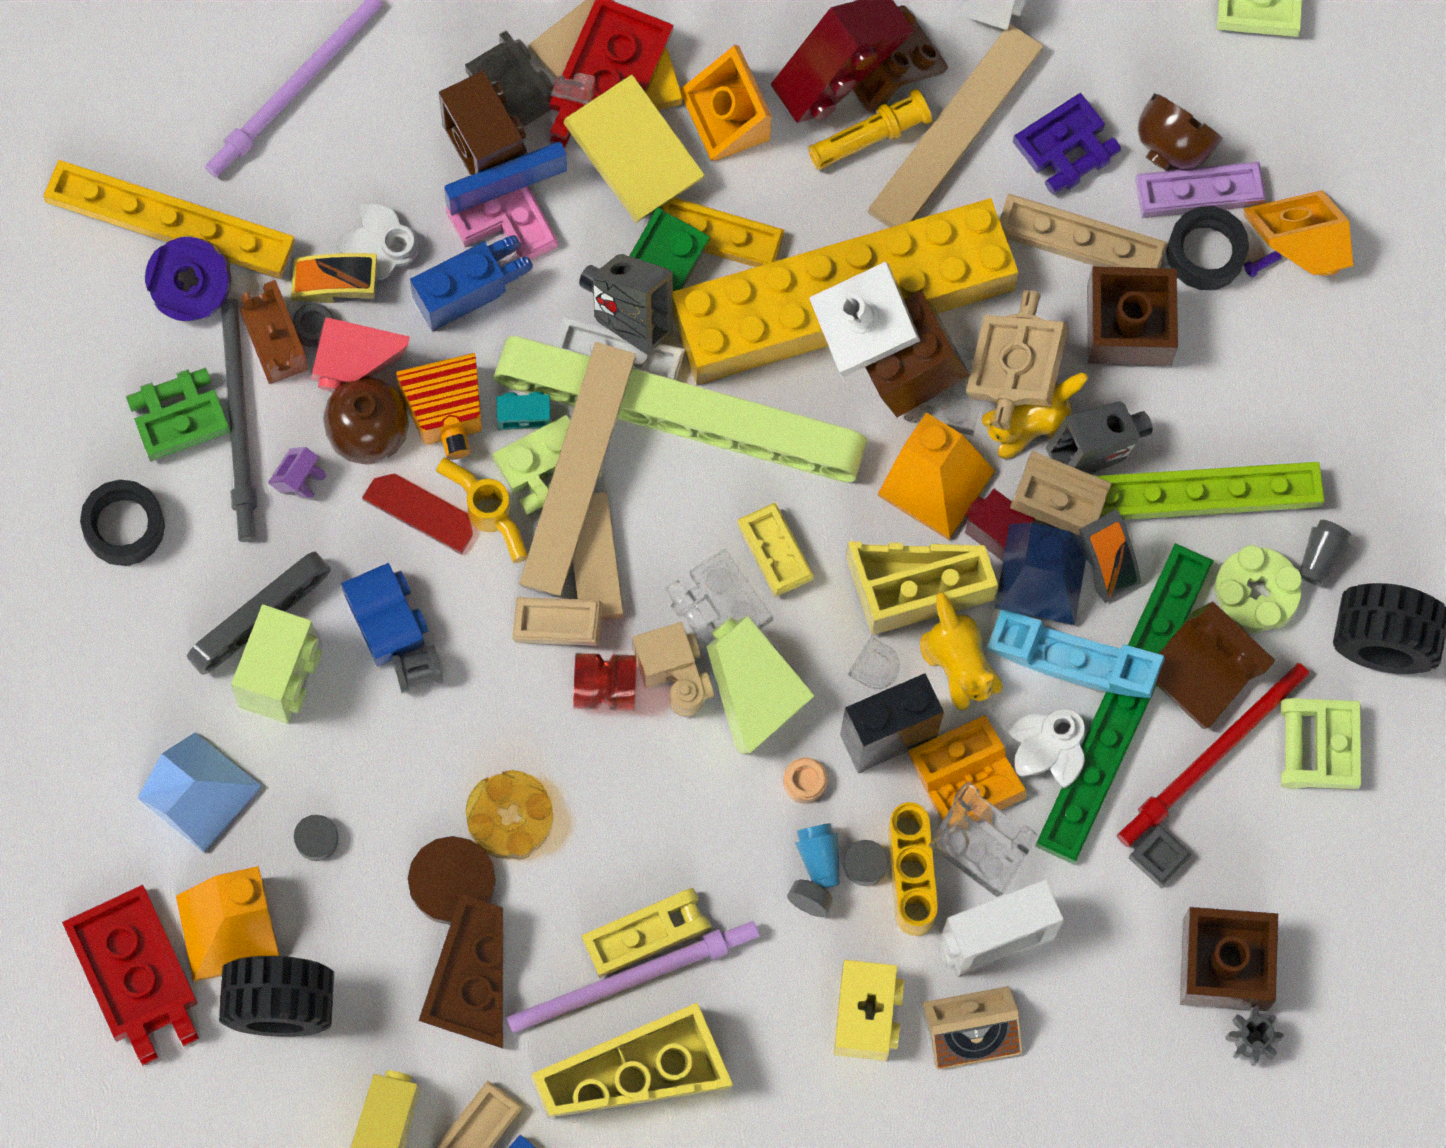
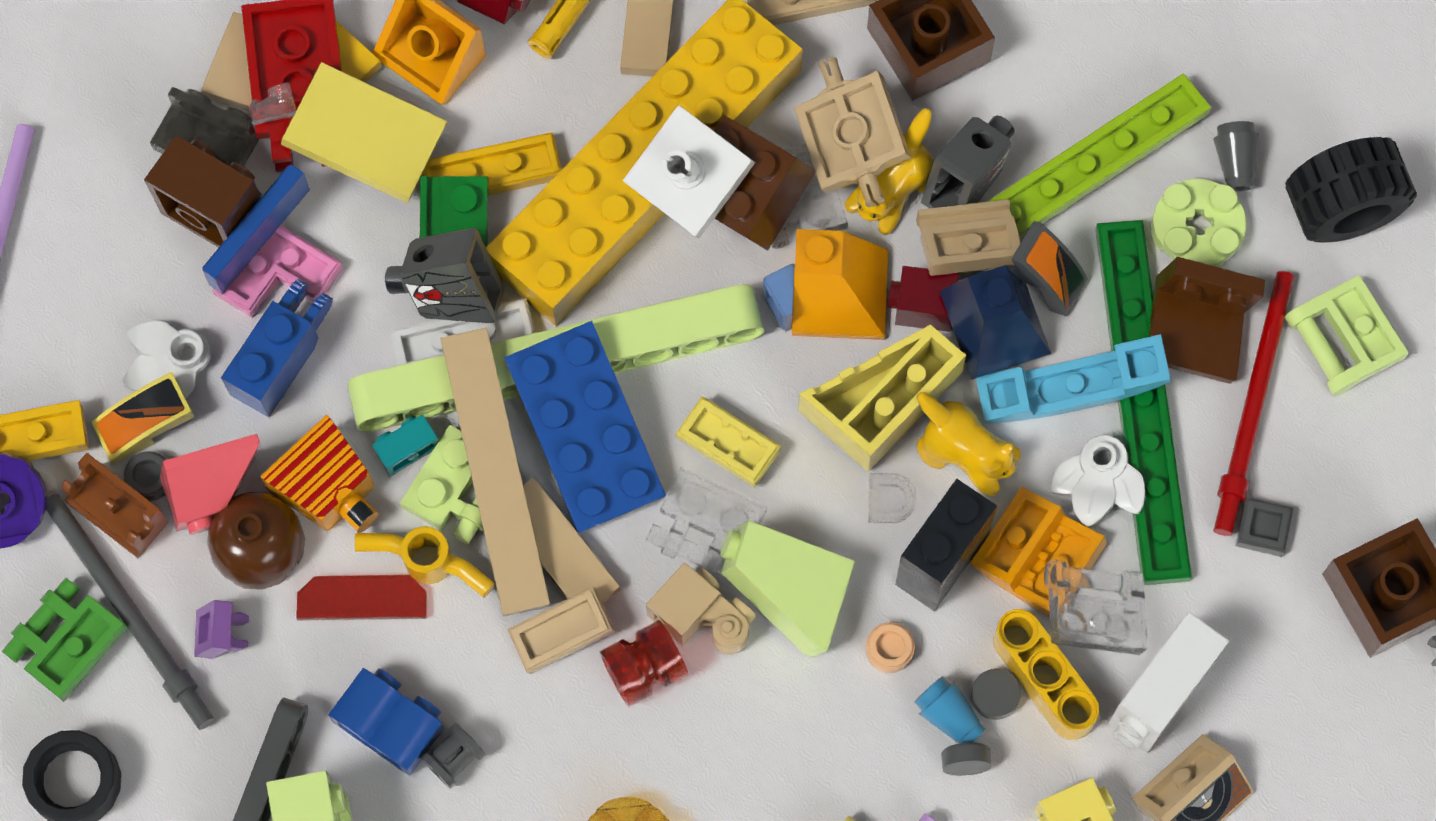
camera: 25 degrees left, 0 degrees up
(668, 474) = (584, 426): none -> blue plate
(885, 453) = (779, 295): none -> medium blue slope

